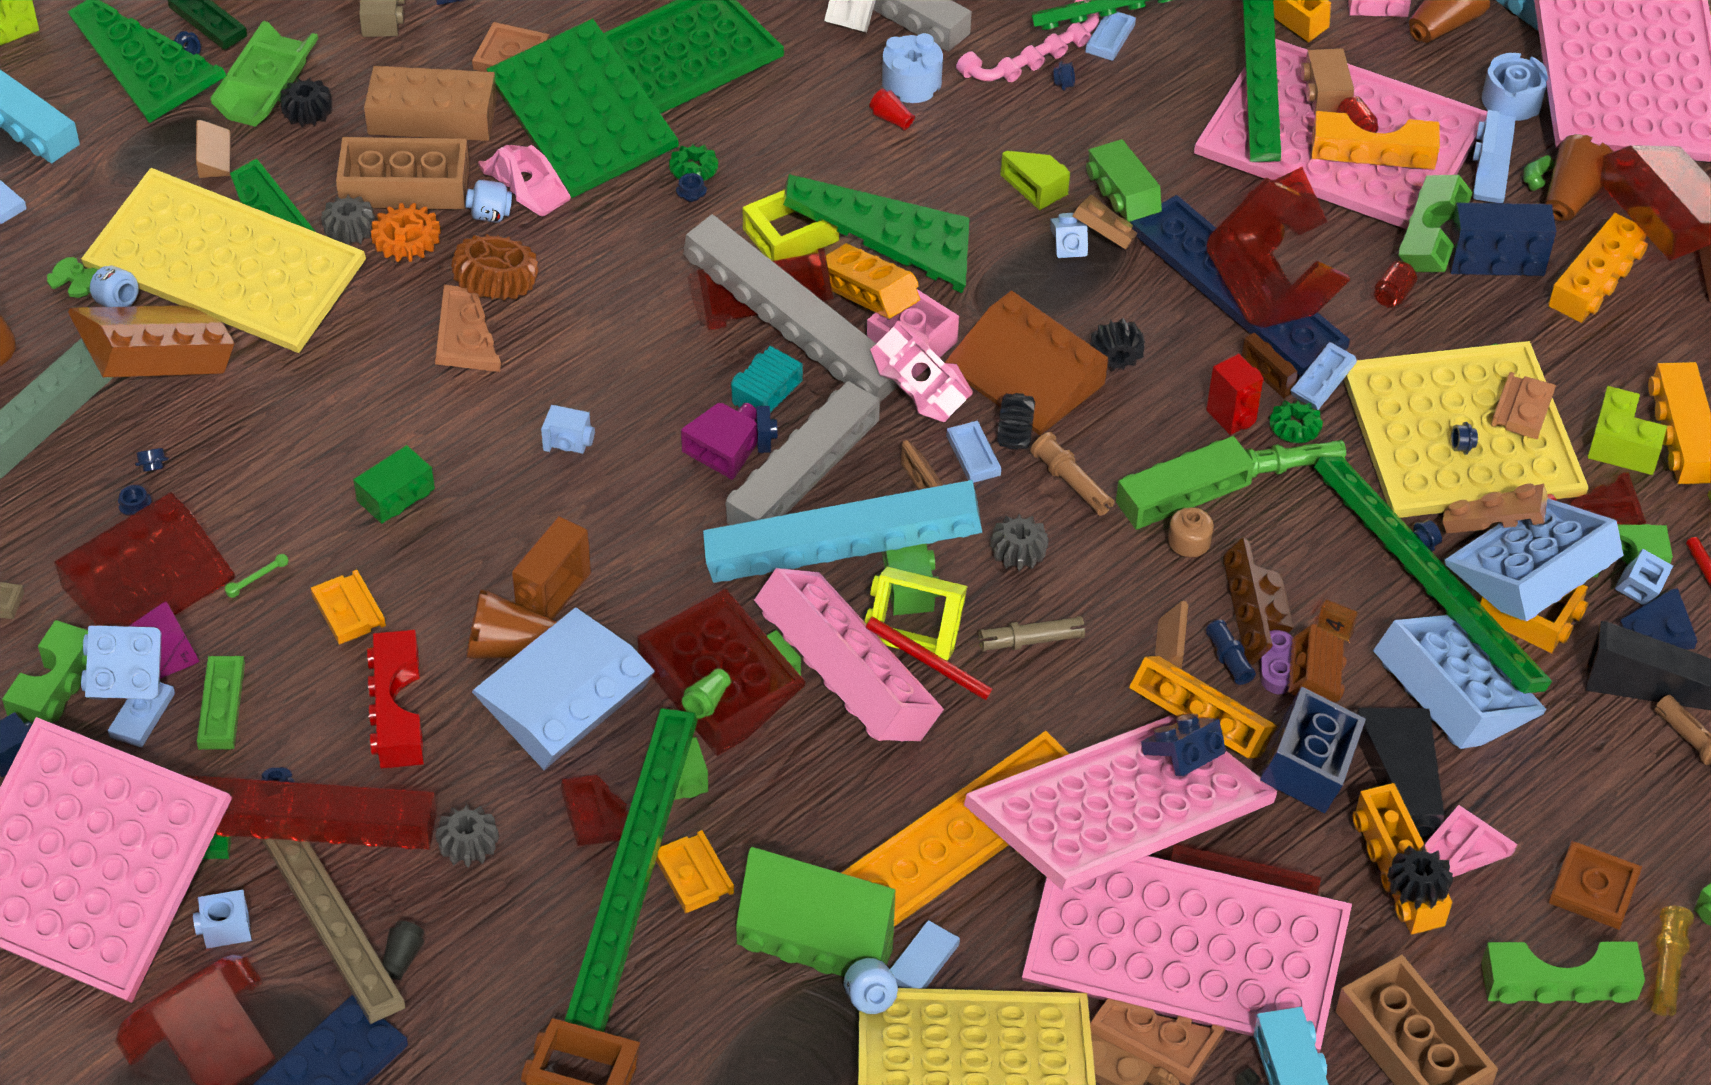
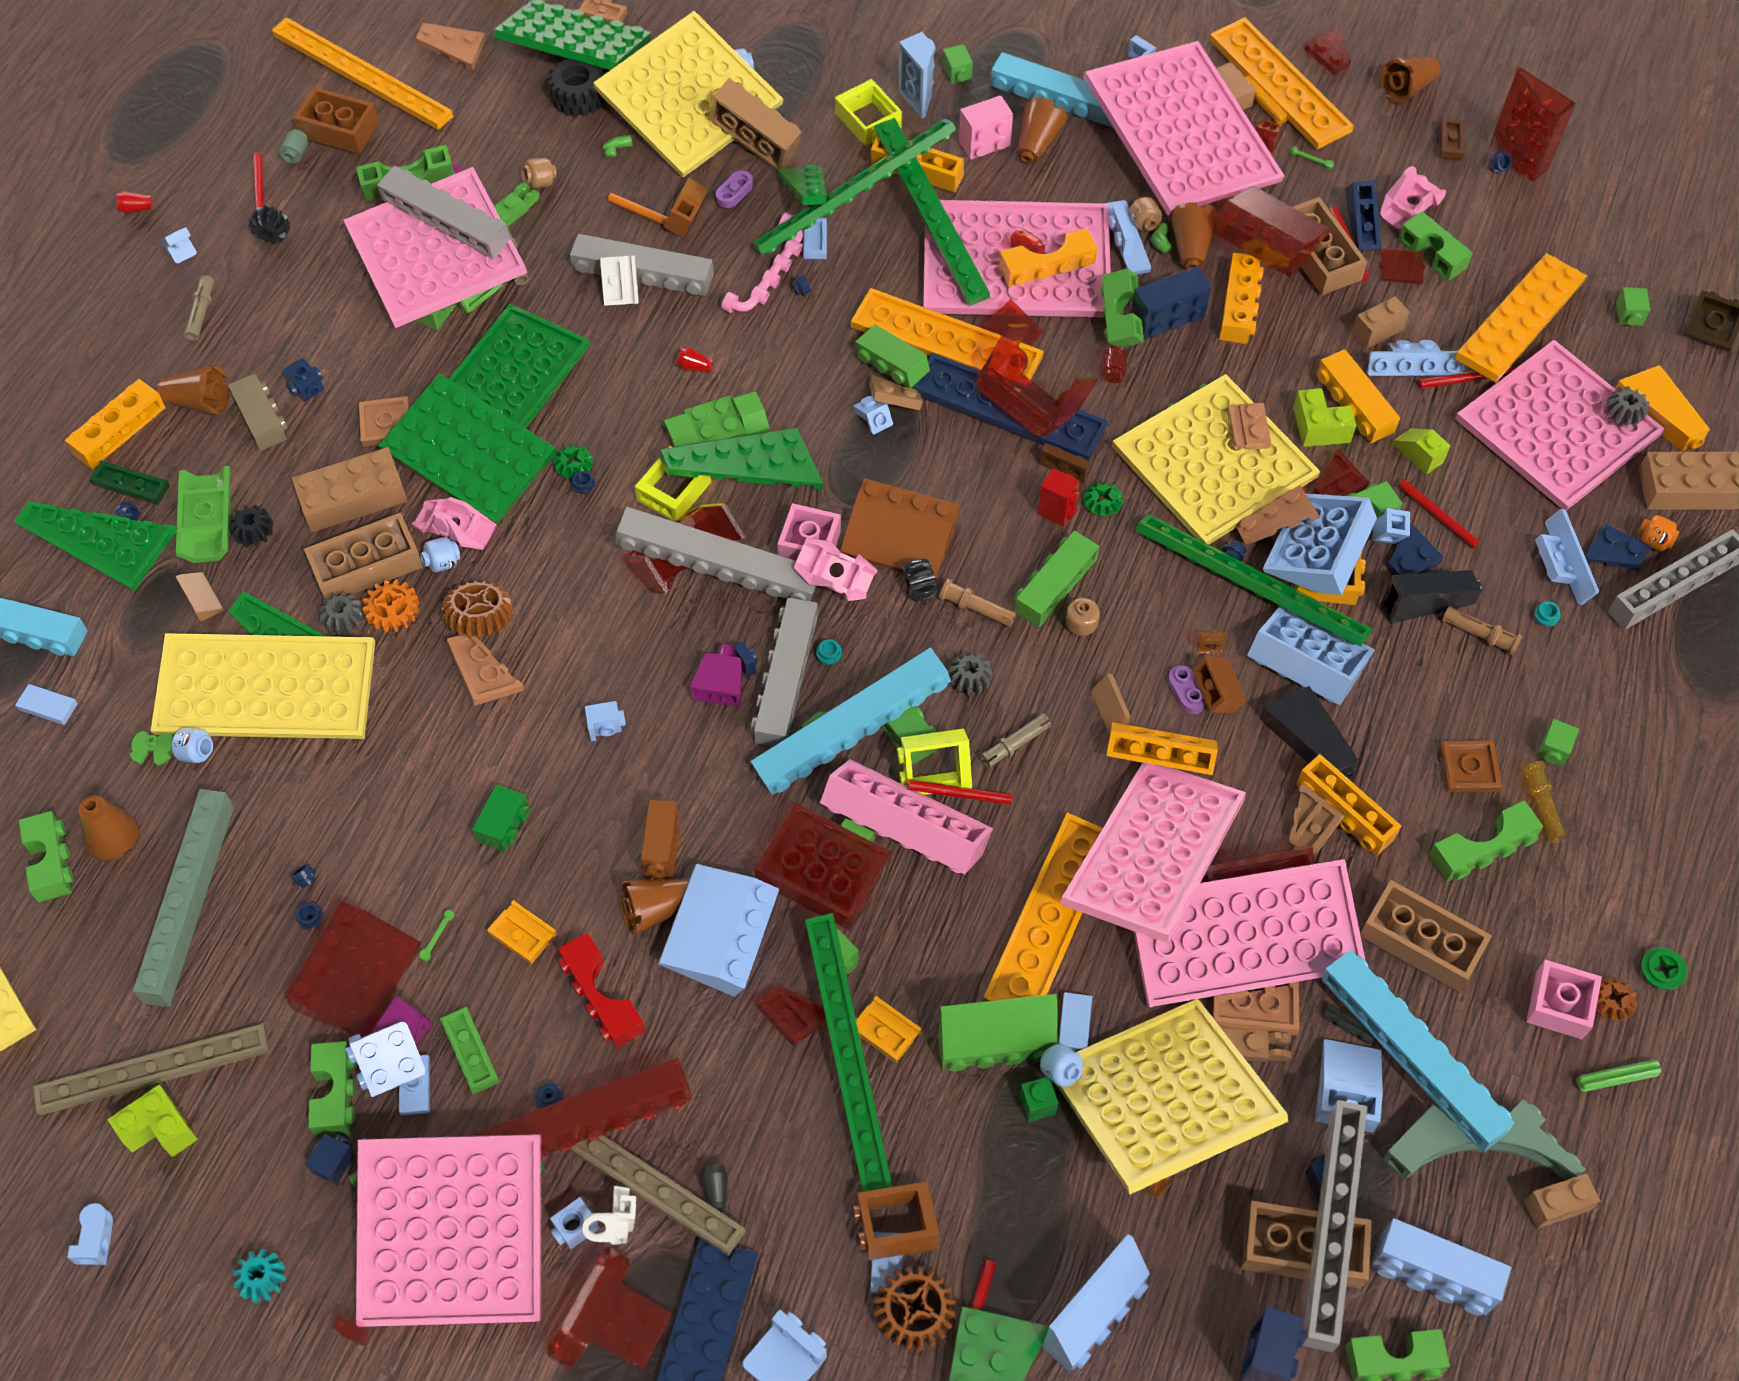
camera: 25 degrees left, 10 degrees up
(153, 340) = (251, 778): dark orange slope -> none
(267, 933) = (618, 1222): none -> white piece
(467, 835) = (700, 1073): dark grey gear -> none
(706, 693) = (832, 895): bright green cone -> none
(767, 379) = (725, 619): teal brick -> none
(826, 1017) = (1038, 1099): none -> green brick
(867, 459) = (829, 652): none -> teal plate
(871, 281) = (766, 511): light orange brick -> none
(883, 176) = (718, 420): none -> bright green piece
(912, 67) = (692, 321): light blue brick -> none
(918, 467) = (876, 649): medium nougat slope -> none
(973, 451) = (898, 614): light blue tile -> none
(1036, 177) = (826, 376): lime slope -> none
(1119, 342) = (958, 488): black gear -> none
(1189, 742) = (1171, 782): dark blue bracket -> none
(1192, 174) = (933, 331): none -> light orange plate
(1230, 652) = (1154, 696): dark blue pin -> none
(1257, 600) = (1151, 650): reddish brown bracket -> none
(1280, 459) = (1109, 533): bright green pin -> none
(1313, 750) = (1253, 751): dark blue brick -> none
(1323, 375) = (1105, 456): light blue plate -> none
(1326, 79) = (991, 221): medium nougat brick -> none
(1347, 858) = (1313, 820): none -> medium nougat wing
(1420, 877) = (1387, 822): black gear -> none
(1464, 438) = (1225, 468): dark blue plate -> none
(1468, 842) = (1378, 773): bright pink wing -> none
(1515, 86) = (1115, 177): light blue brick -> none
(1530, 138) = (1145, 214): none -> medium nougat head

